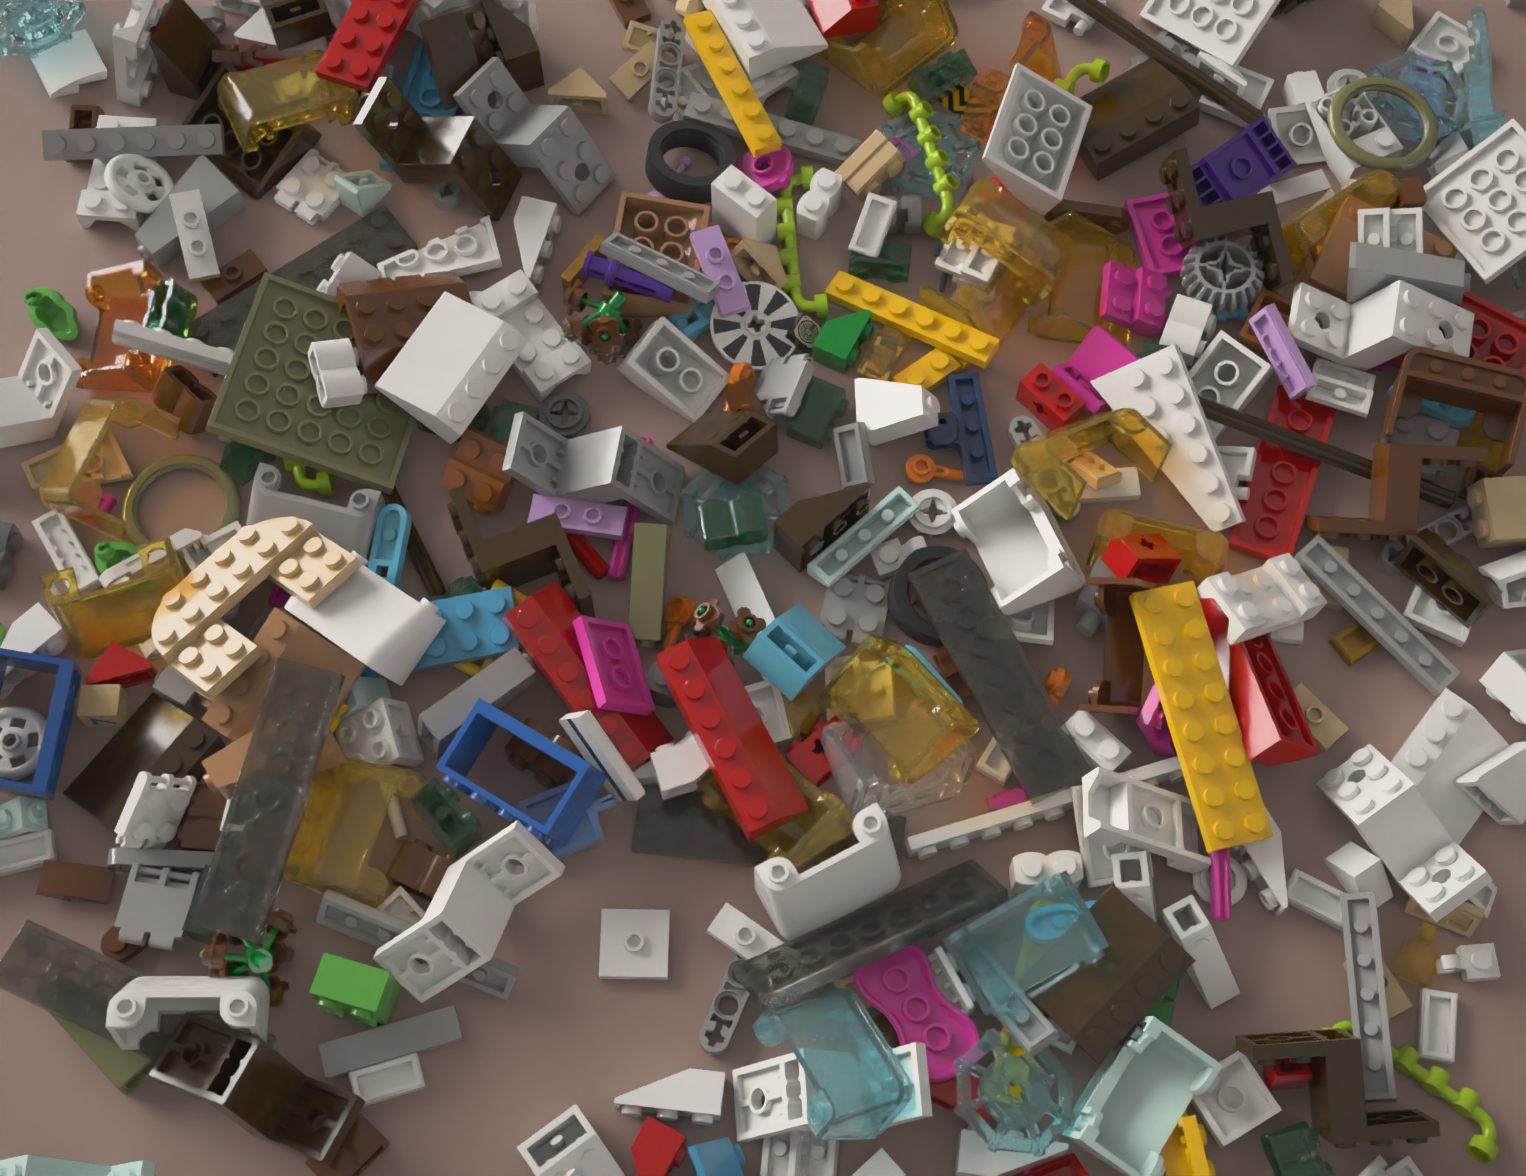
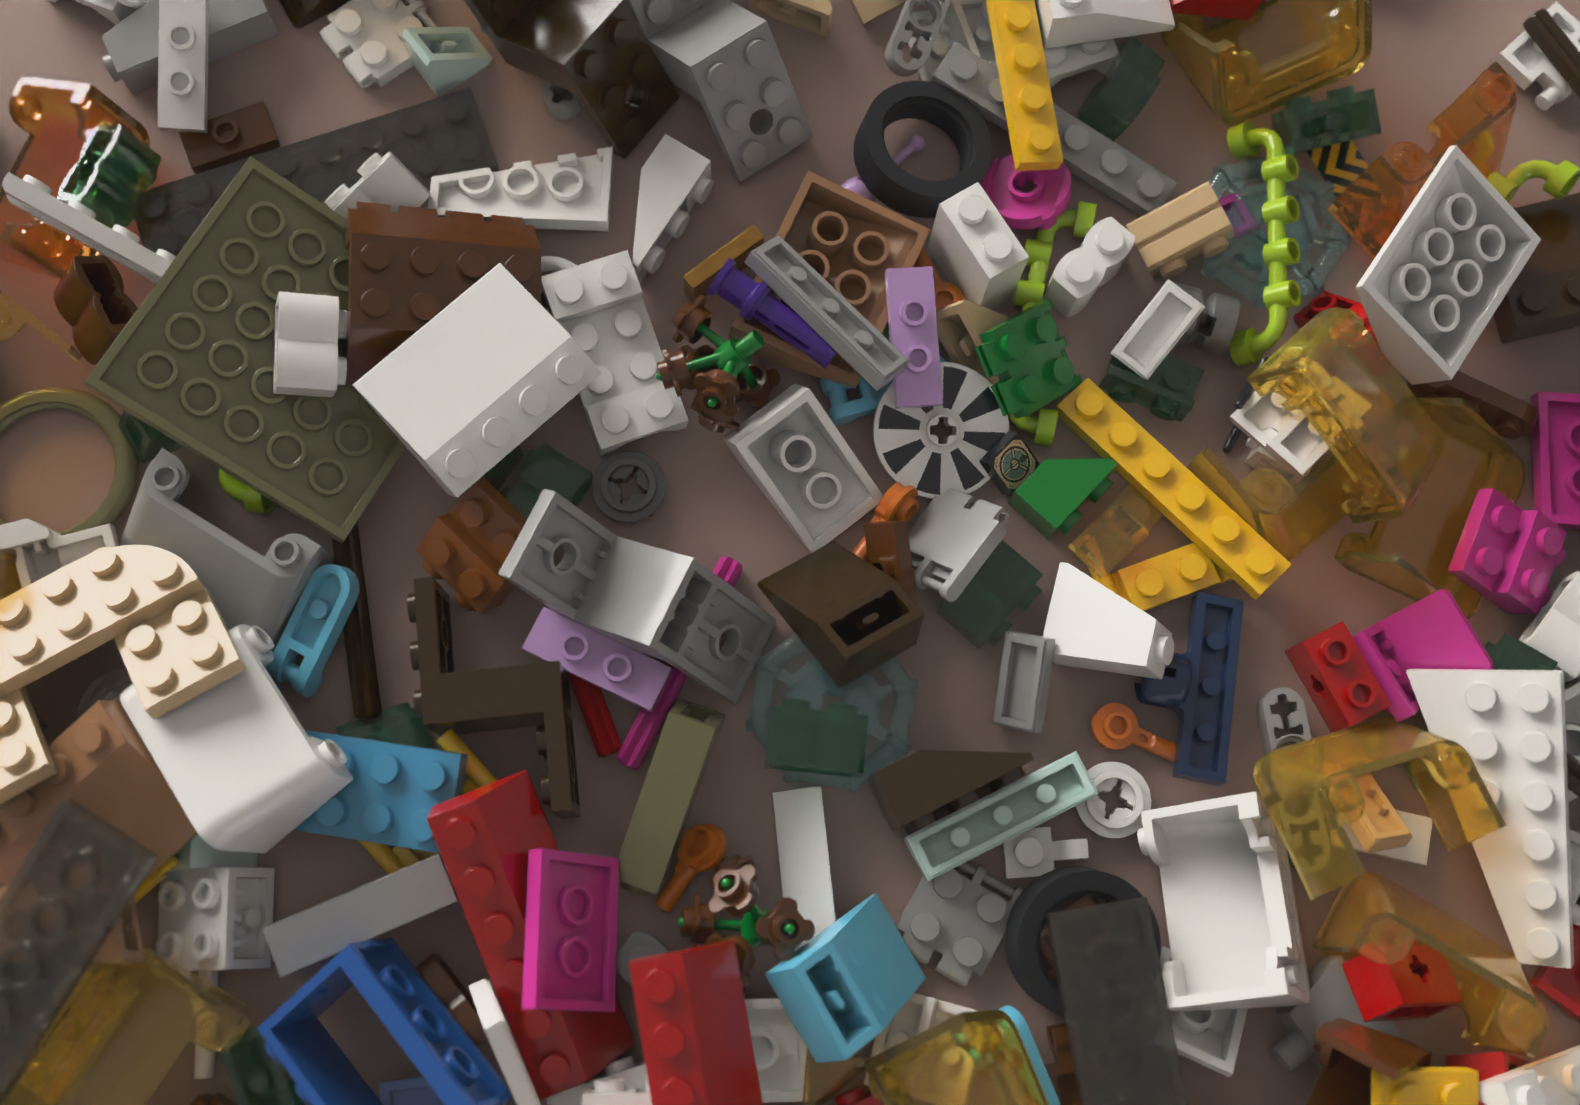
camera: 10 degrees right, 10 degrees up
(797, 267) = (1027, 360): none -> green plate

